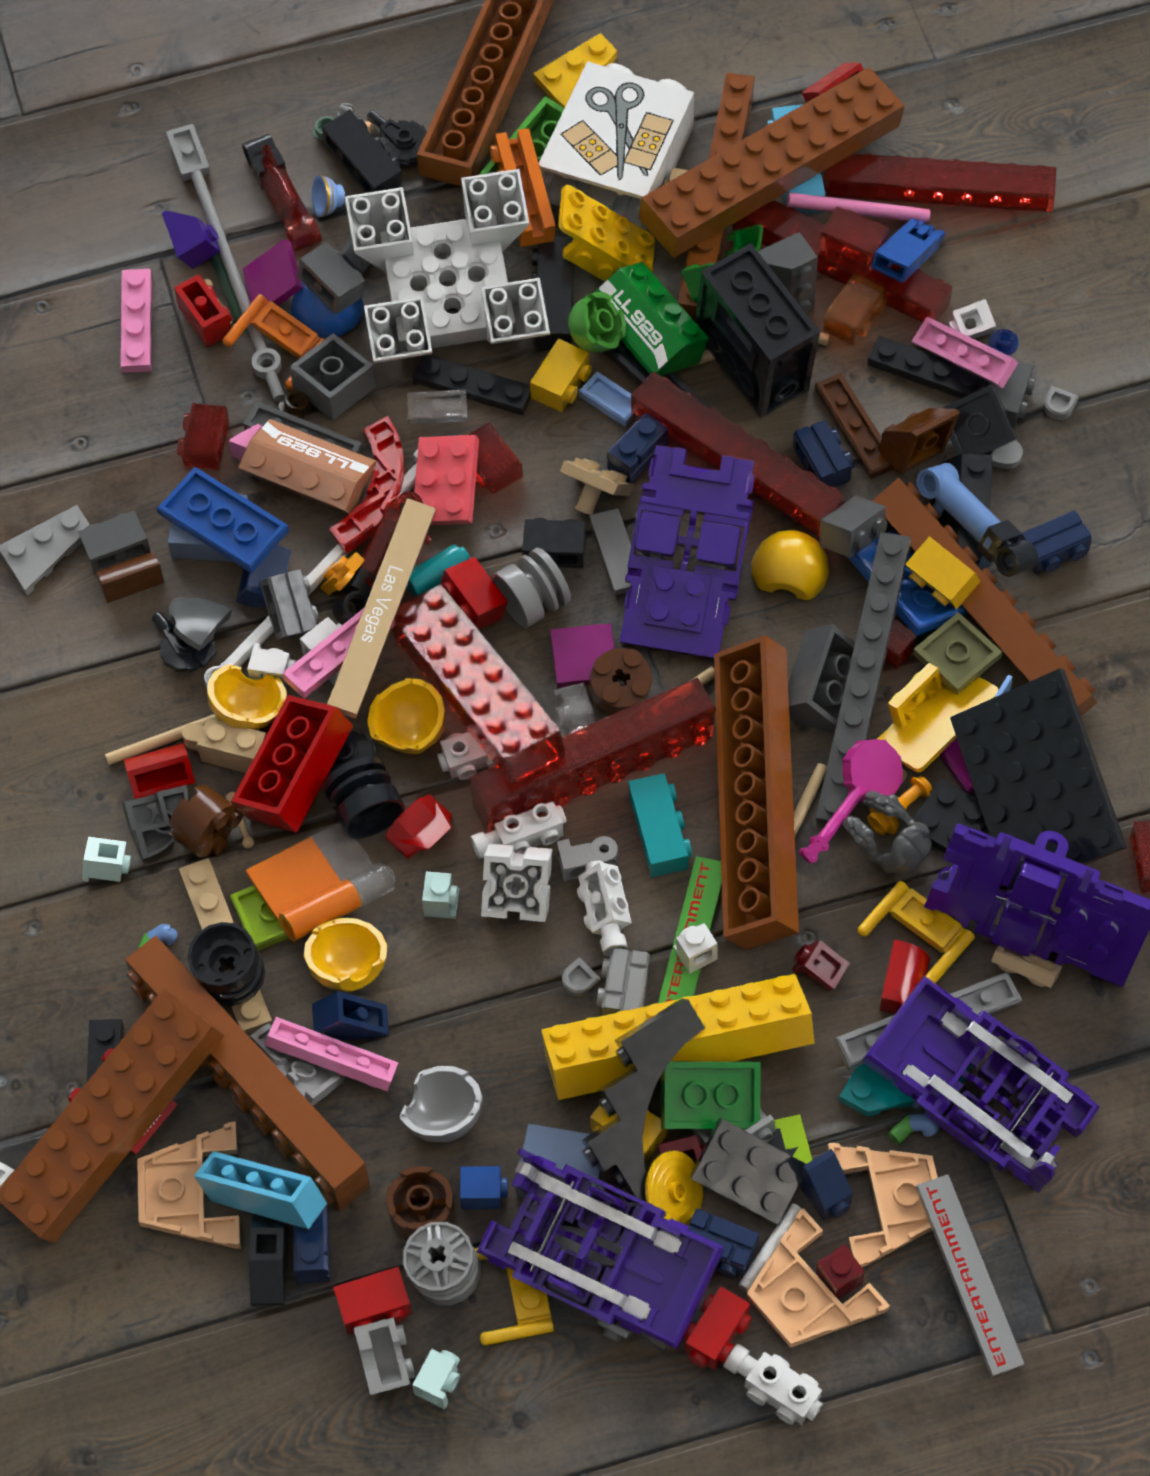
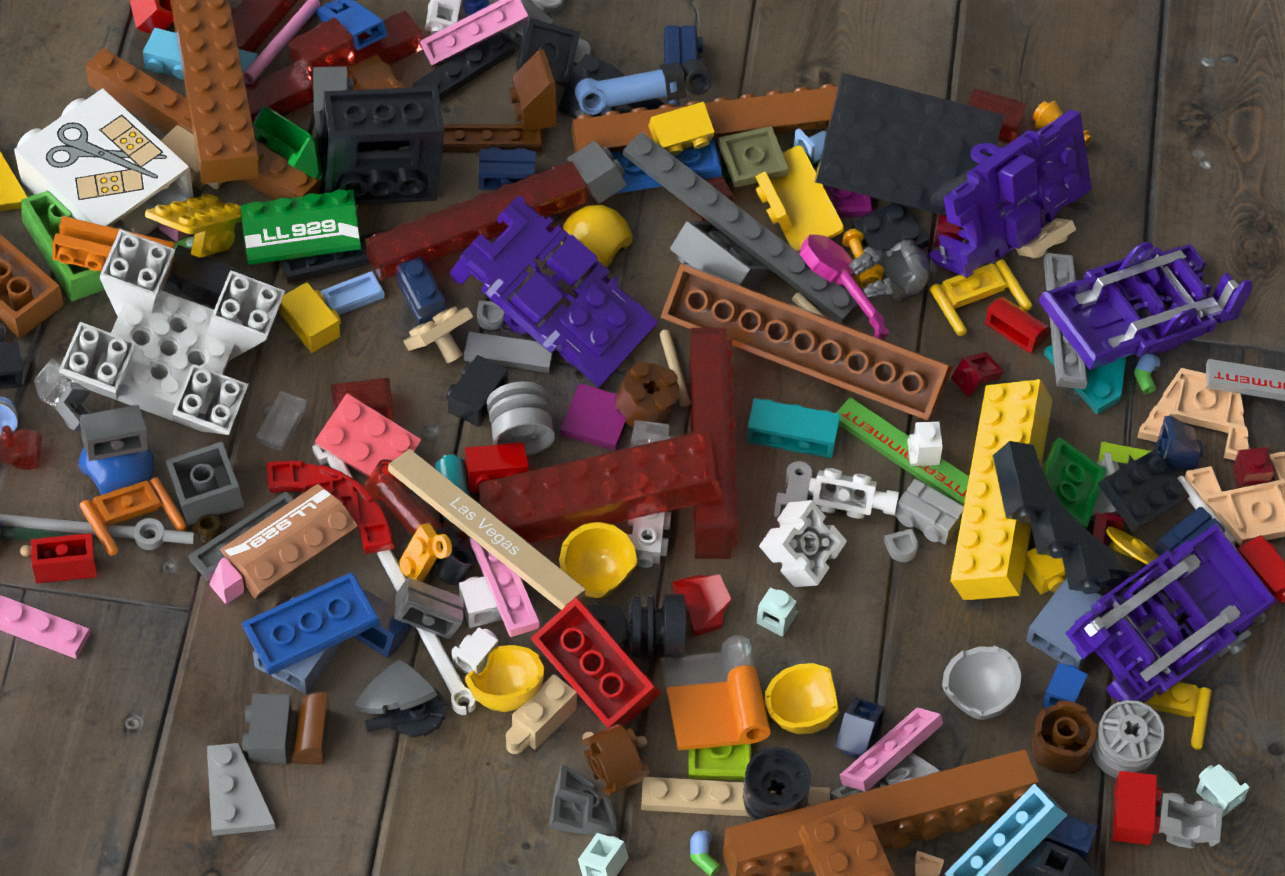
camera: 70 degrees left, 5 degrees down
(151, 743) = (497, 773): tan piece -> none
(159, 771) = (532, 782): red brick -> none
(204, 436) = (198, 612): clear red brick -> none
(273, 274) = (61, 488): magenta tile -> none
(479, 385) = (283, 377): black plate -> none
(529, 833) = (751, 526): white brick -> none
(596, 323) = (287, 262): bright green cylinder -> none

